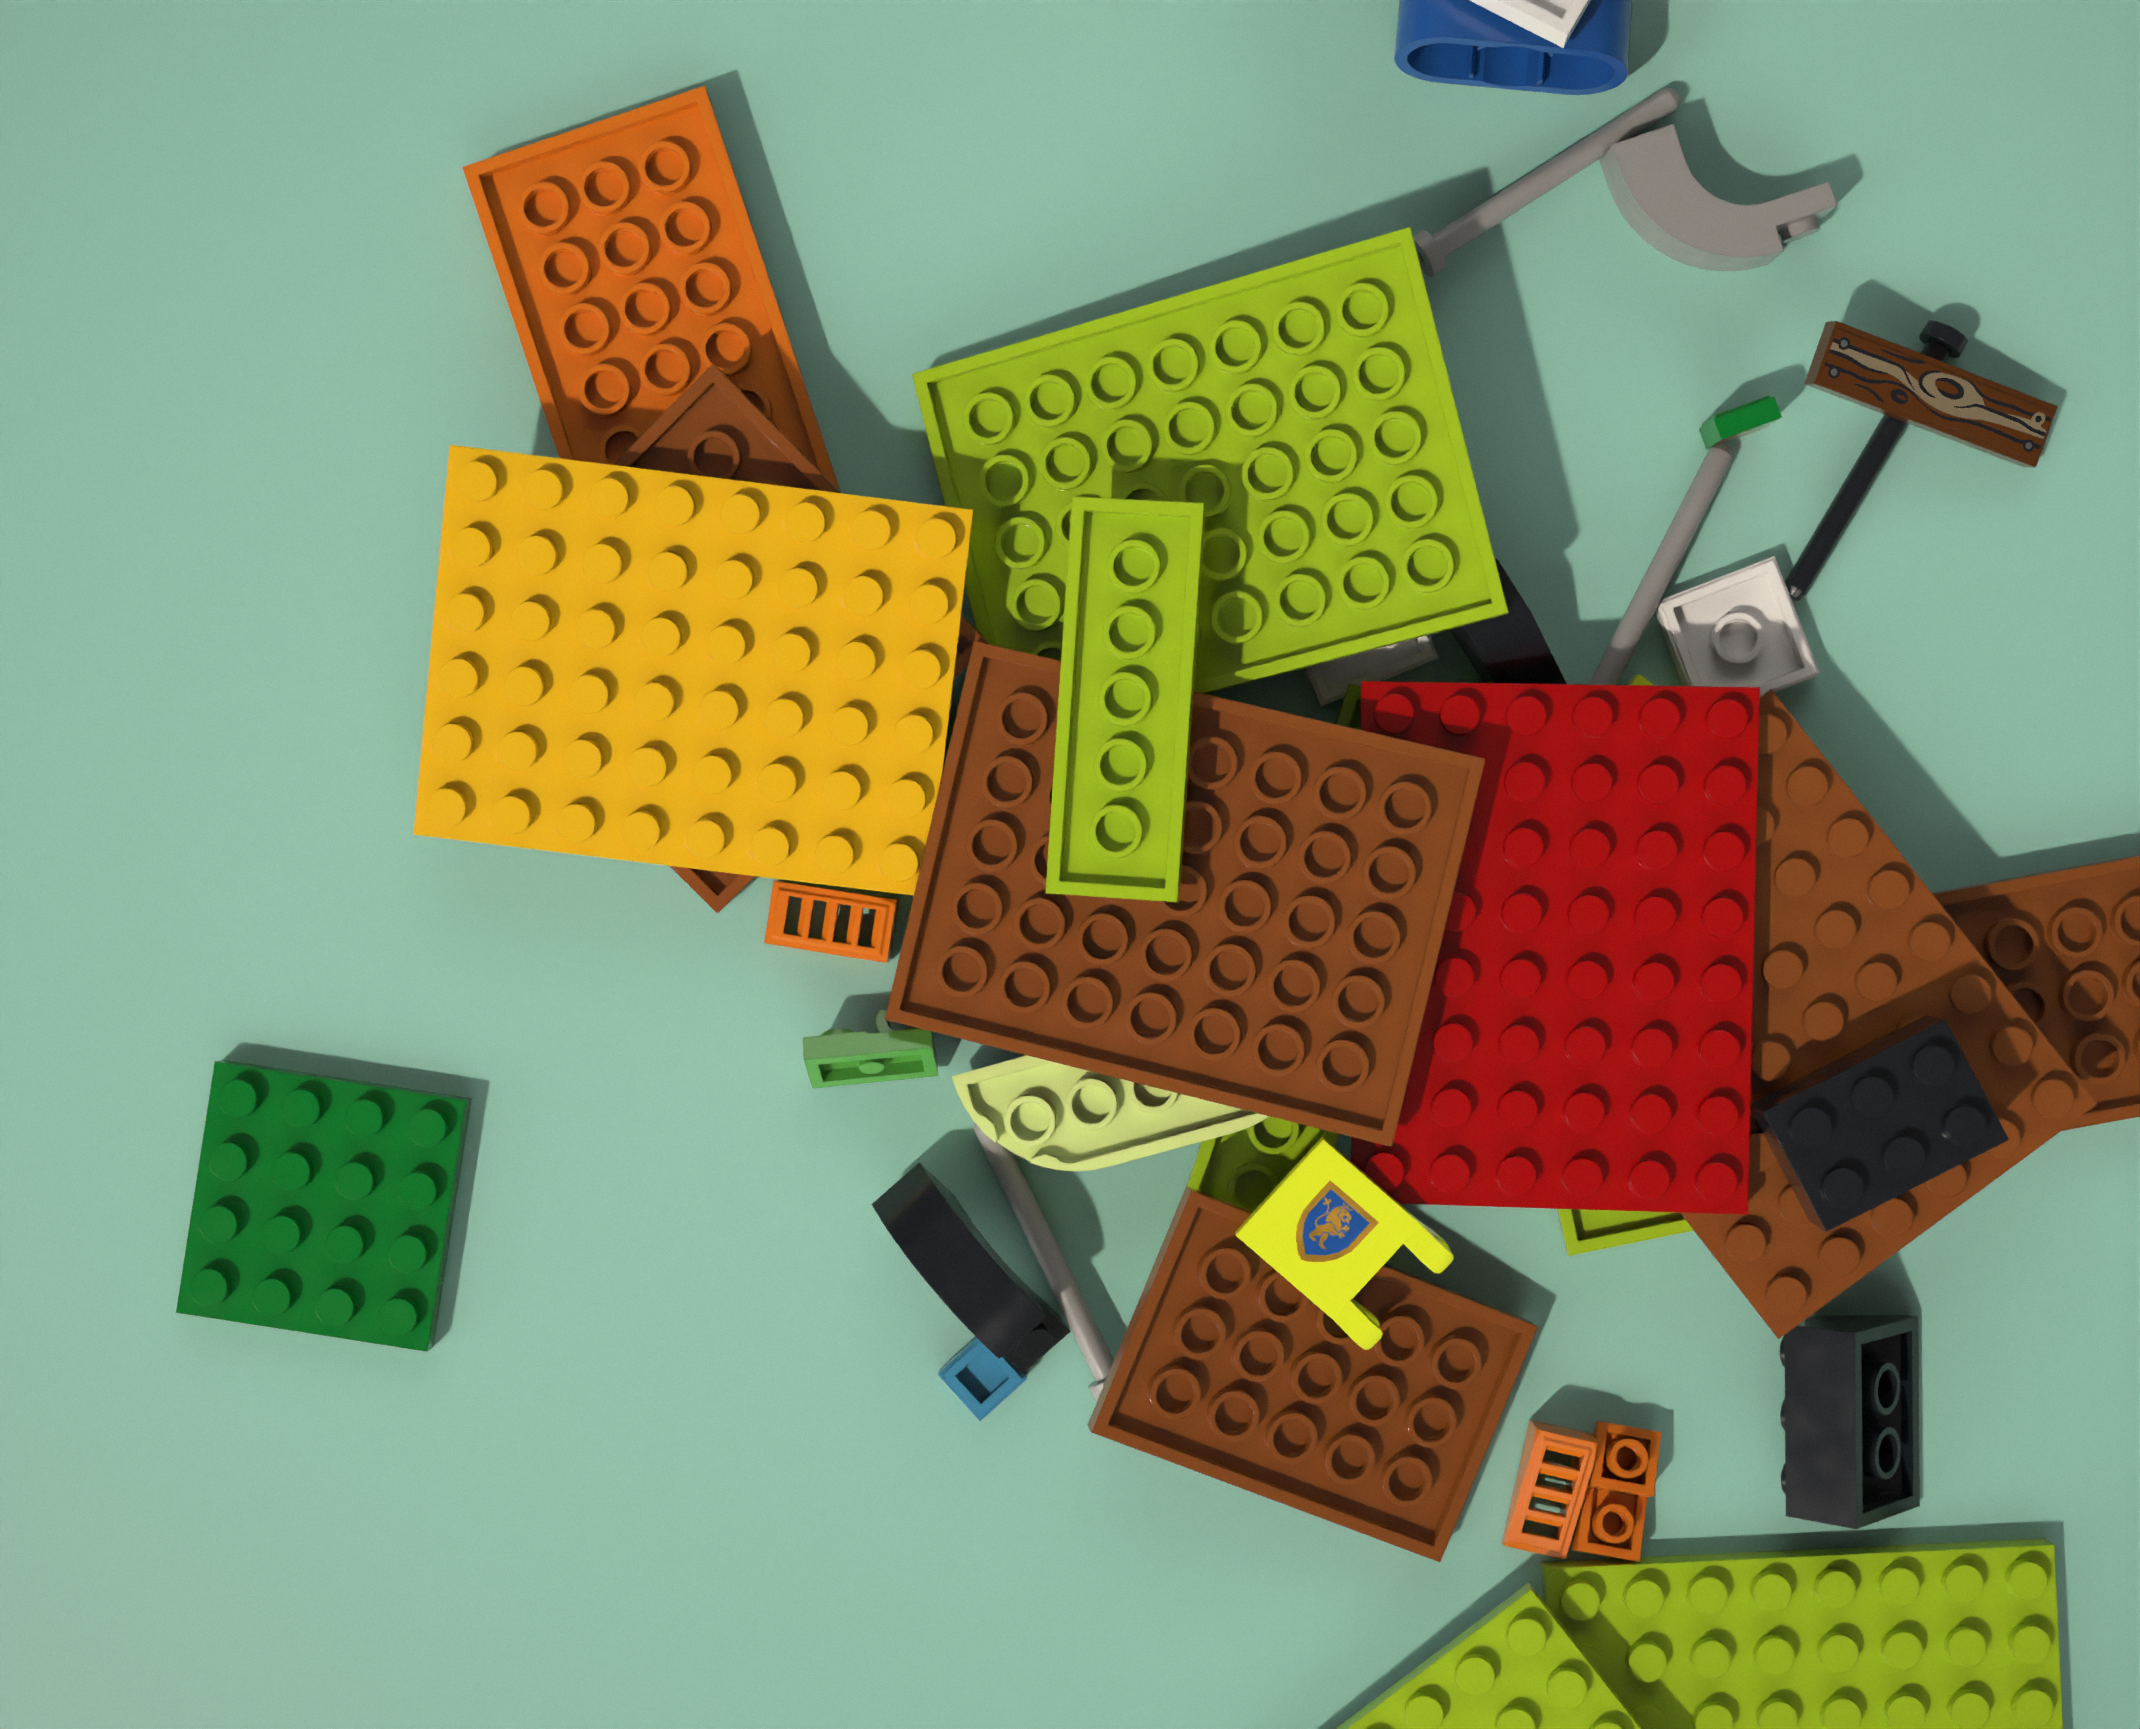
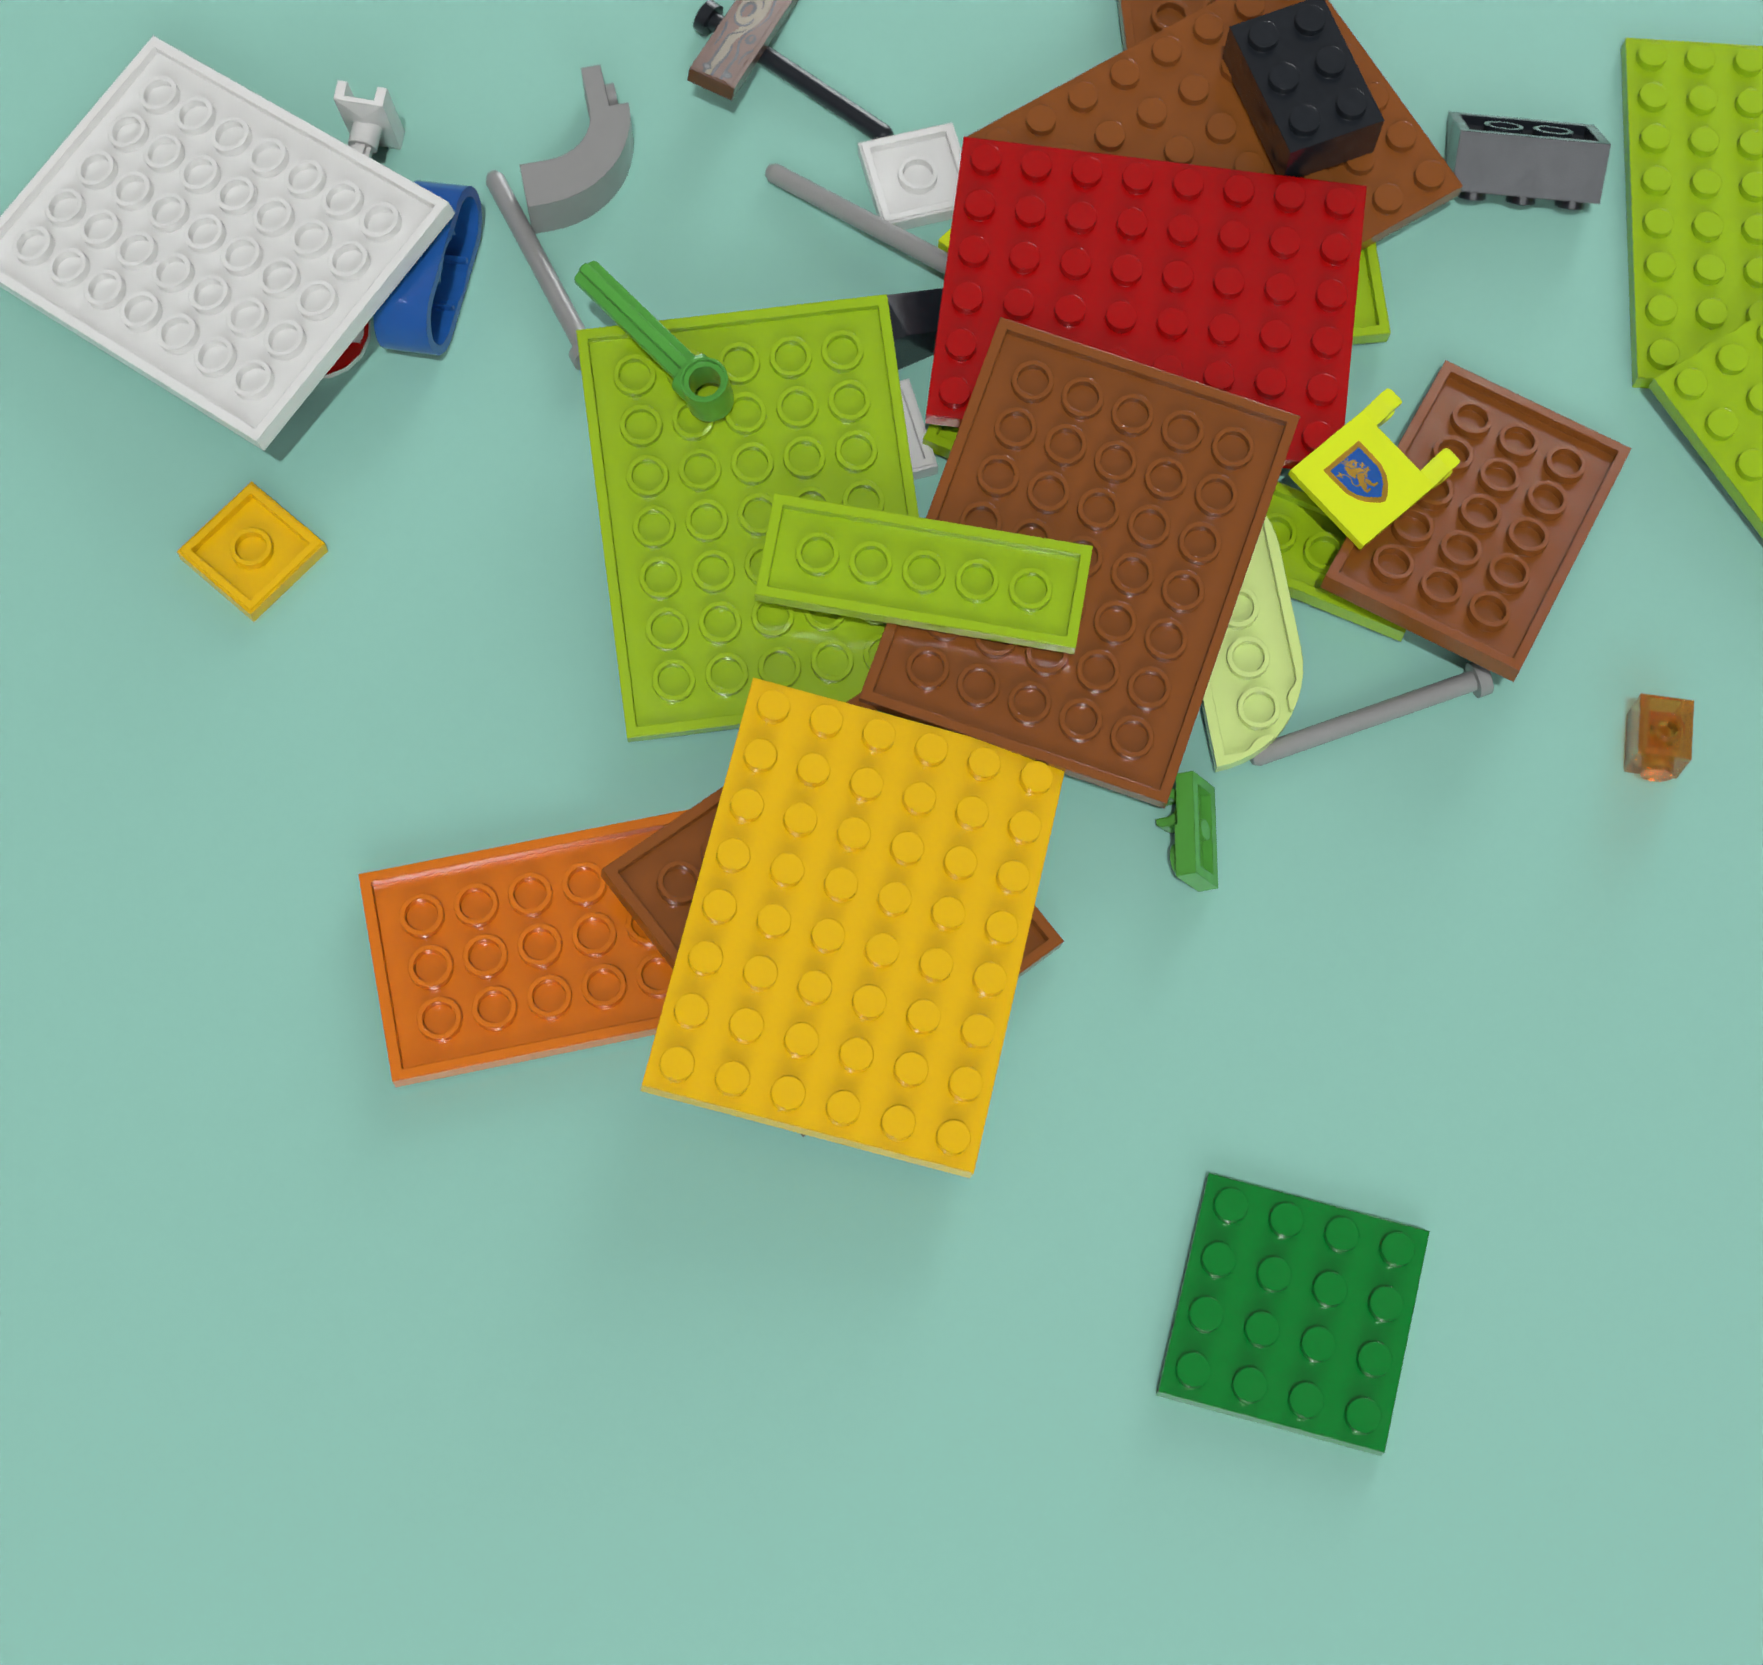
camera: 85 degrees left, 20 degrees down
(883, 927) = (1090, 811): orange slope -> none
(967, 1270) = (1375, 767): black arch -> none
(981, 1378) = (1467, 780): dark azure tile -> none
(1052, 1601) = (1658, 737): none -> clear orange brick
(1399, 328) = (657, 341): none -> bright green axle
(1563, 1440) = (1567, 349): orange slope -> none
(1618, 1492) = (1567, 324): orange slope -> none
(1740, 421) = (752, 152): green tile -> none

